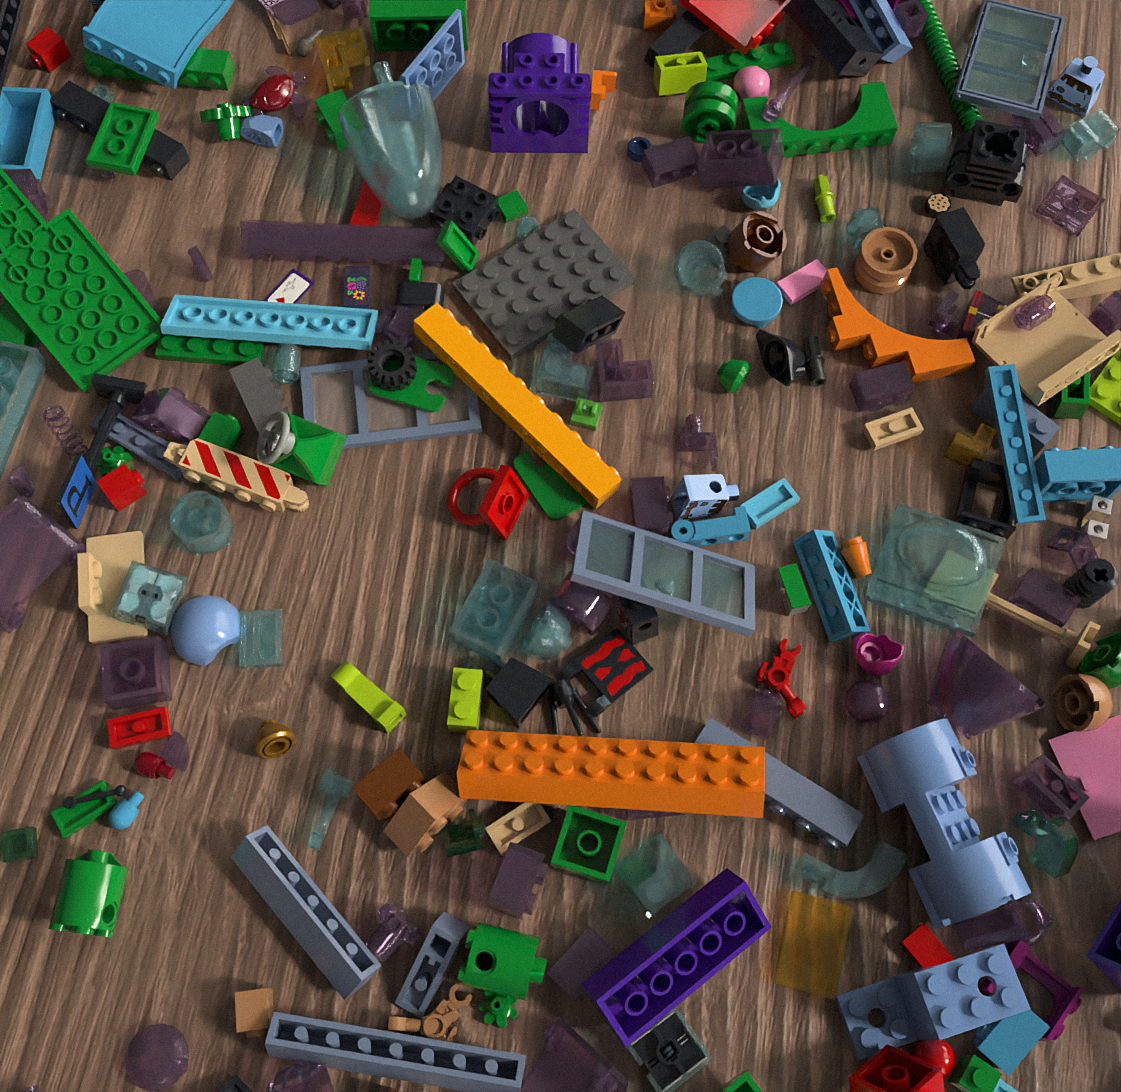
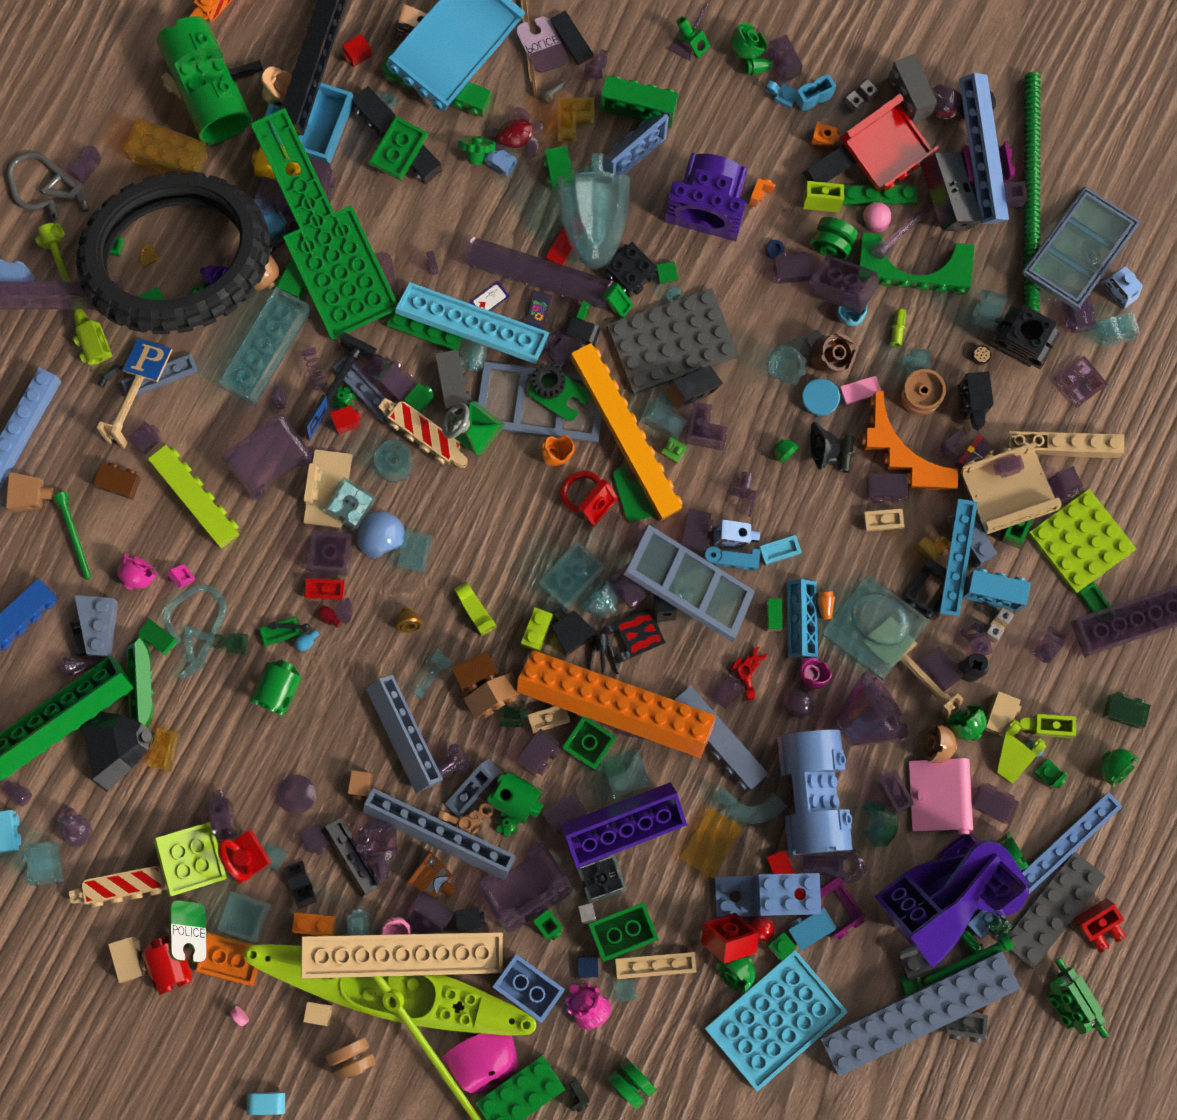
camera: 15 degrees right, 10 degrees up
(428, 452) = (557, 450): none -> orange helmet

